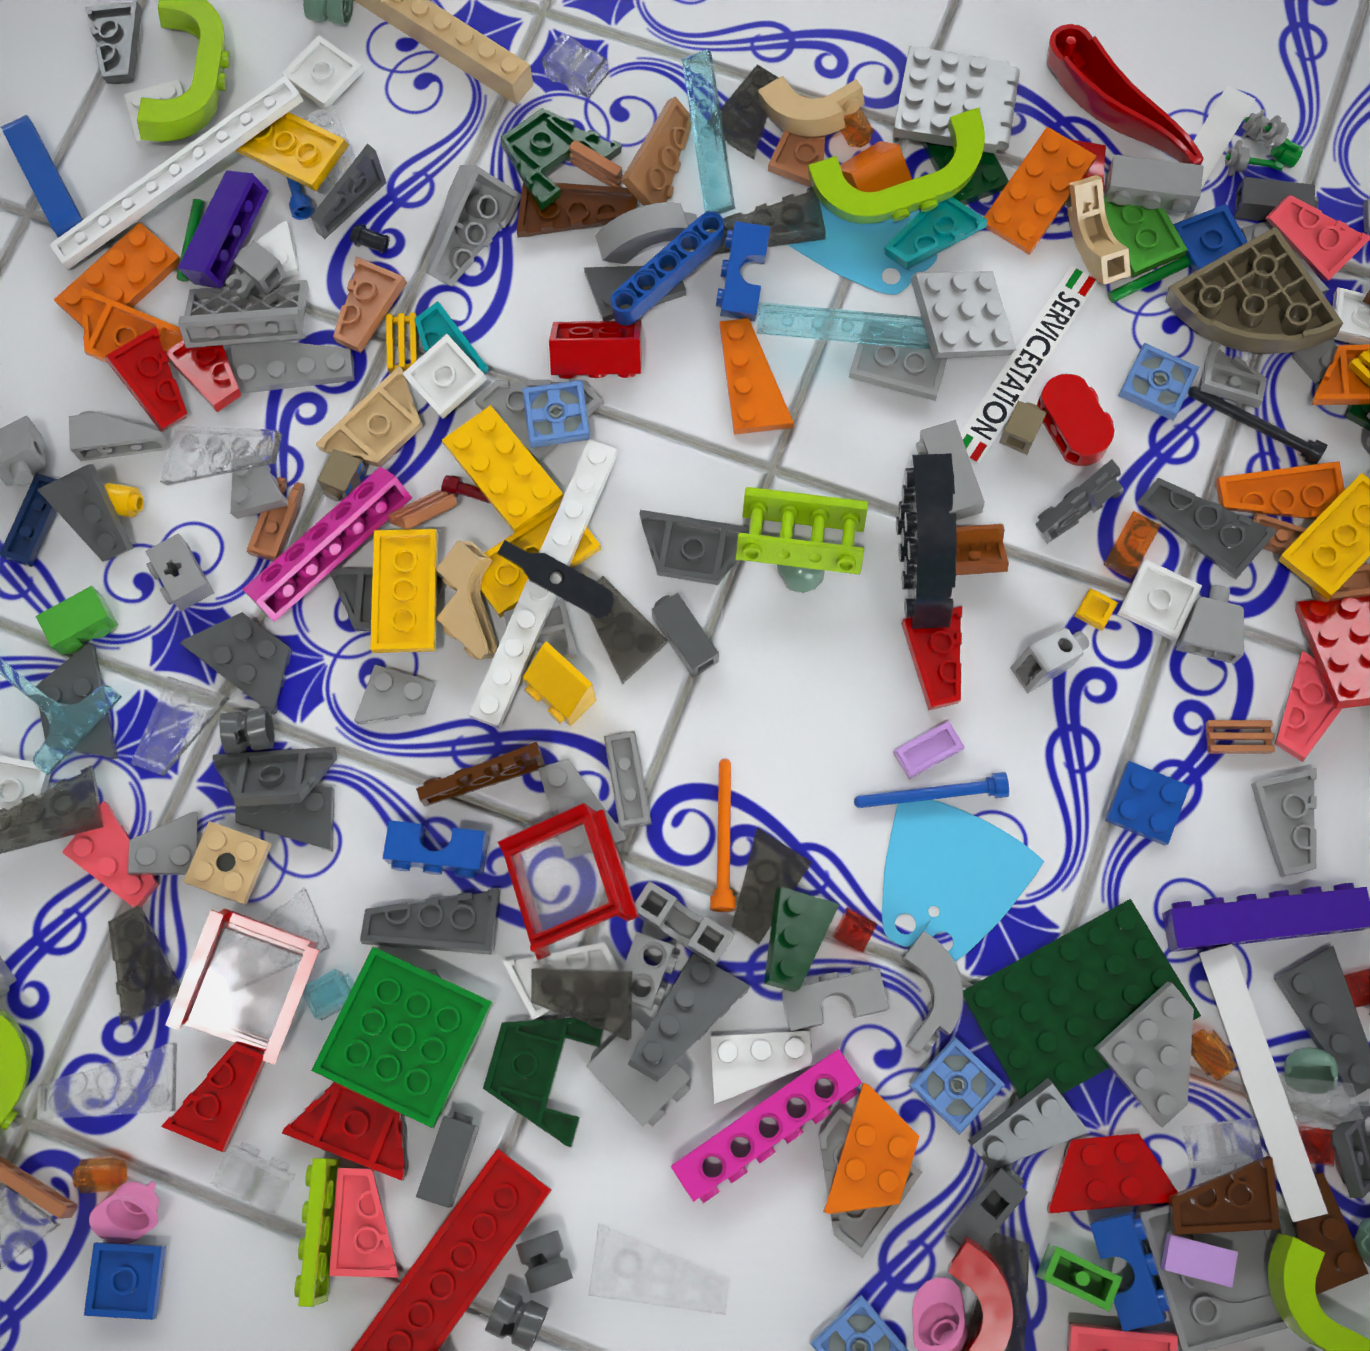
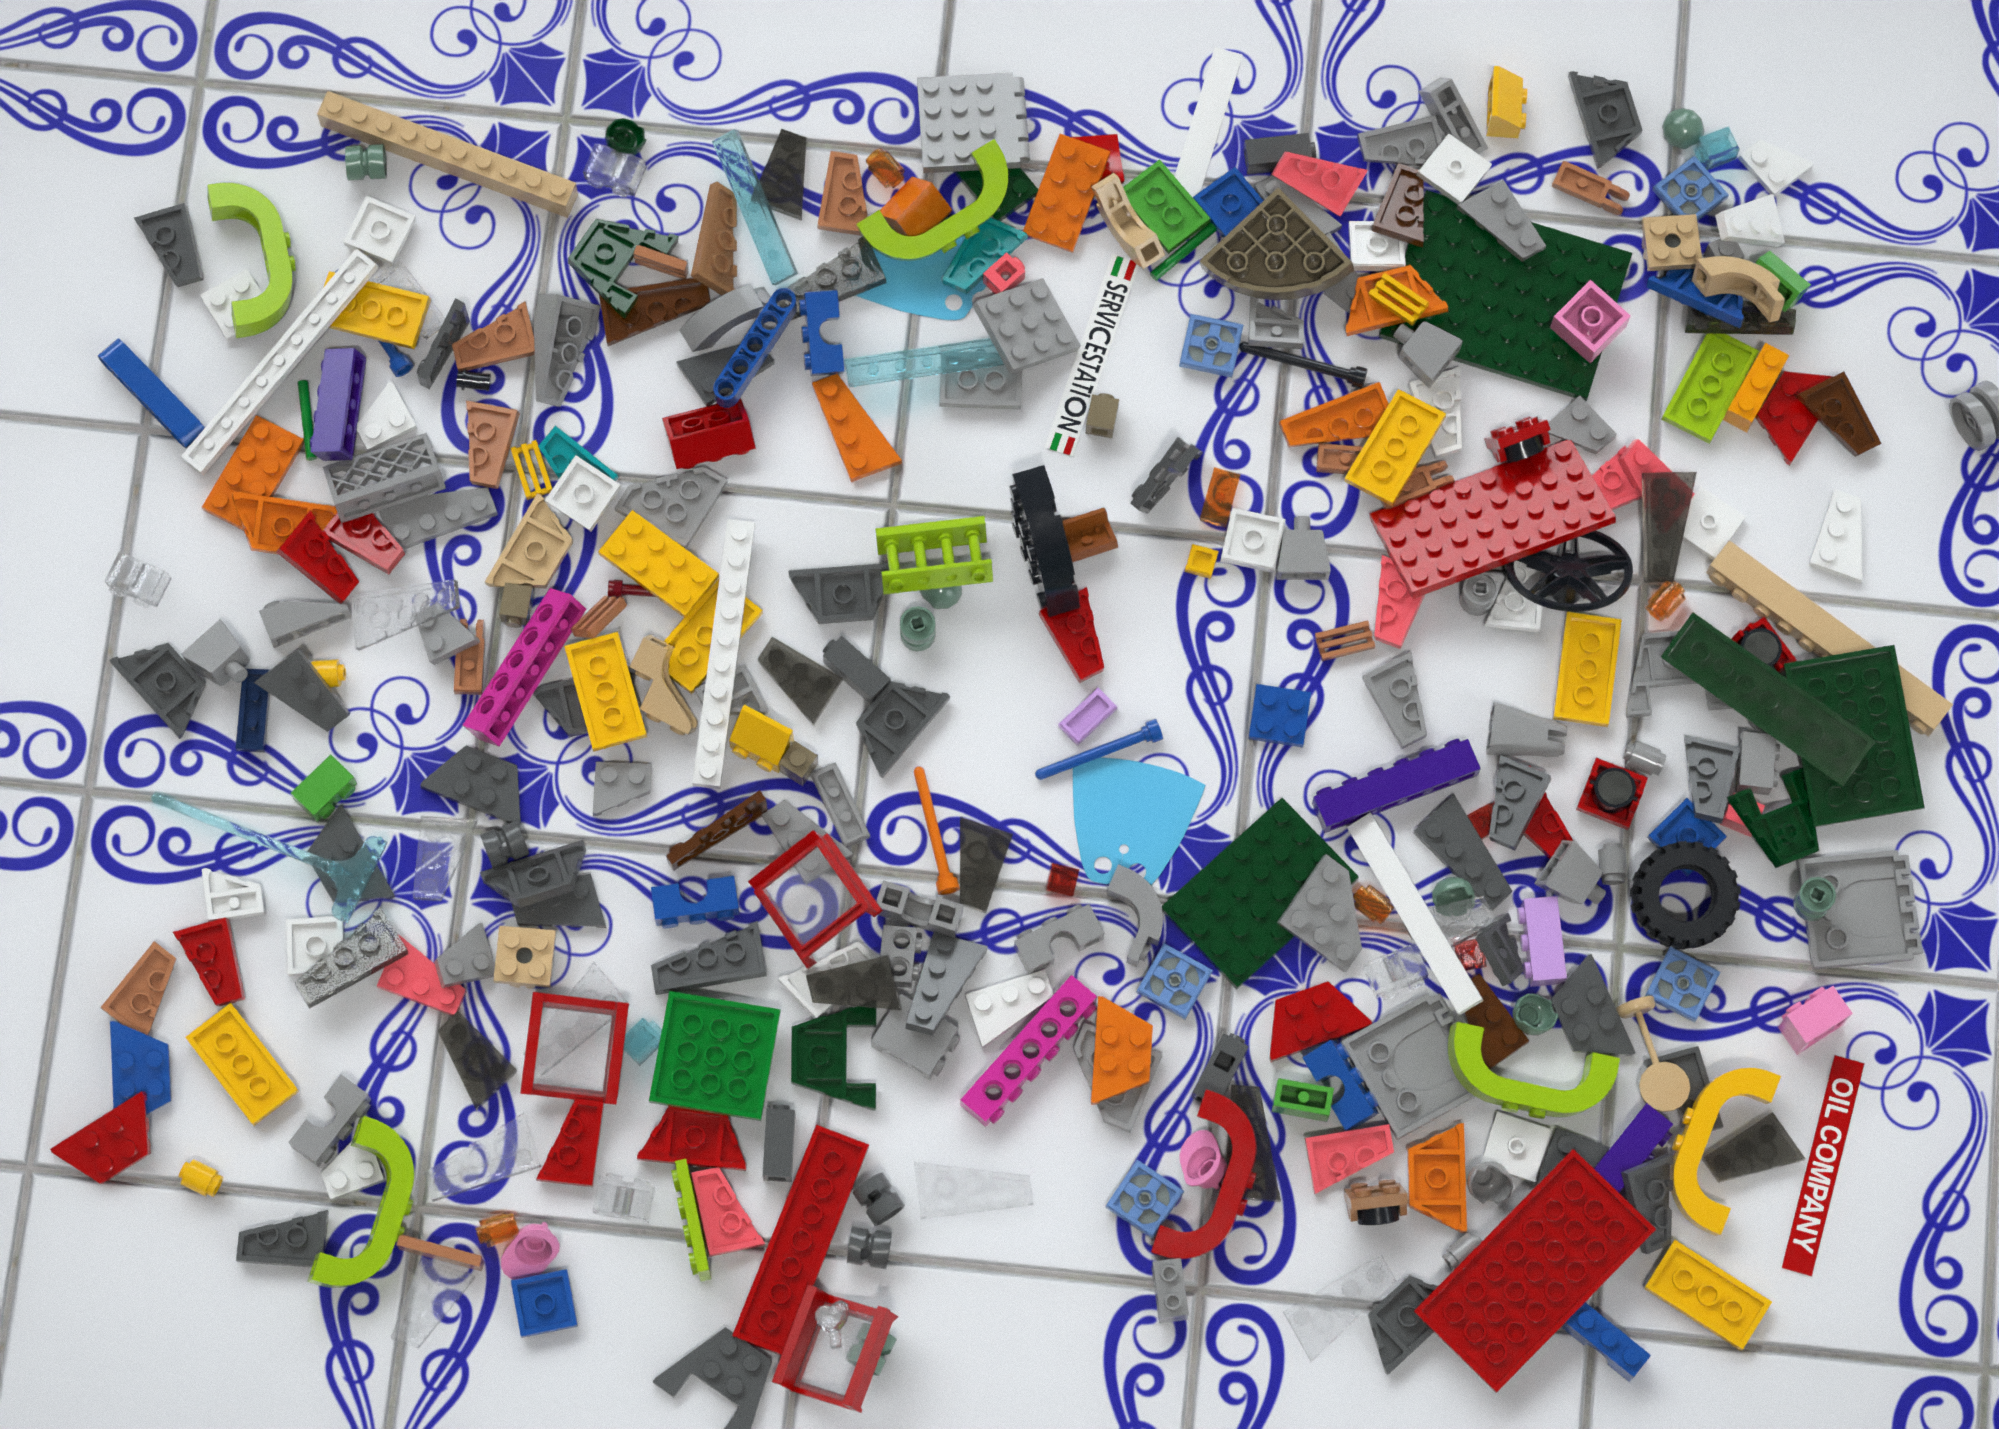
camera: 20 degrees left, 0 degrees up
(176, 556) = (393, 710): light grey brick -> none
(256, 269) = (384, 436): light grey brick -> none
(404, 208) = (498, 342): none -> nougat wing
(556, 413) = (692, 503): medium blue piece -> none
(574, 586) = (751, 651): black piece -> none
(593, 721) = (798, 763): none -> dark tan brick
(595, 35) = (625, 136): none -> dark green hair
(714, 703) = (897, 721): none -> dark grey wing
(763, 605) = (917, 628): none -> sand green wheel
(795, 936) = (1014, 895): dark green wing -> none
(808, 115) = (842, 174): tan arch -> none
(948, 439) = (1038, 450): light grey brick -> none
(956, 250) = (1004, 266): none -> coral brick
(1028, 1127) = (1239, 998): wing -> none
(1049, 658) = (1170, 613): light grey torso -> none
(1076, 419) = (1146, 398): red brick -> none
(1110, 97) = (1107, 87): red animal -> none
(1154, 183) = (1166, 166): light grey brick -> none
(1199, 1260) = (1393, 1063): lavender tile -> none
(1215, 532) = (1283, 467): dark grey wing -> none
(1228, 1203) = (1406, 1013): reddish brown wing -> none
(1274, 135) = (1261, 96): light grey plant -> none

